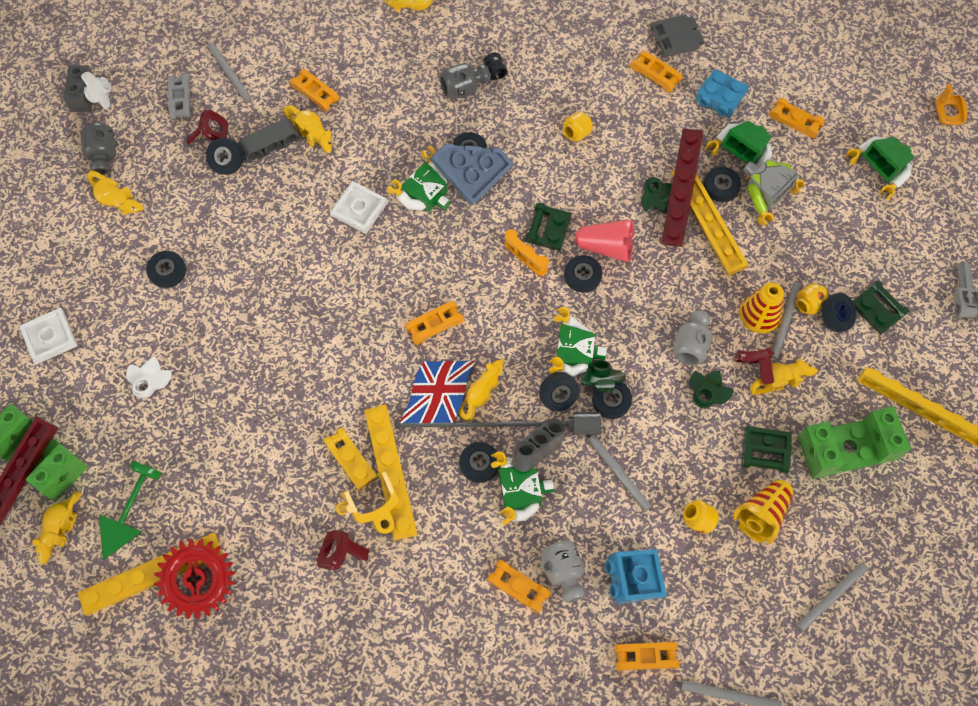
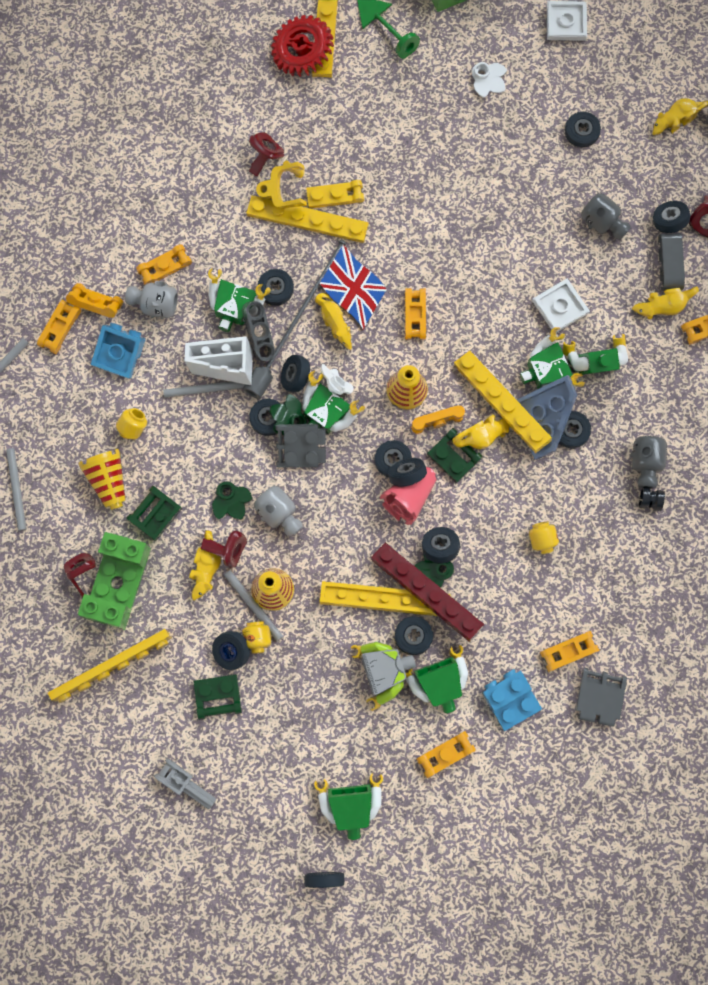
camera: 120 degrees right, 10 degrees up
(251, 208) = (603, 215): none -> dark grey piece
(396, 149) = (598, 360): none -> torso
(478, 209) = (502, 402): none -> yellow plate
(511, 292) = (407, 388): none -> yellow cone
(519, 210) = (482, 434): none -> yellow animal
(546, 347) = (335, 382): none -> white plate
(588, 462) = (221, 359): none -> white wedge
(599, 634) = (94, 301): none -> light orange plate
(604, 242) = (407, 472): none -> black bush
(622, 351) = (301, 445): none -> dark grey plate
(635, 186) = (437, 553): none -> black bush
(875, 478) = (73, 573): none -> dark red piece
(955, 100) = (387, 913): light orange piece -> none
(956, 149) = (324, 879): none -> black bush

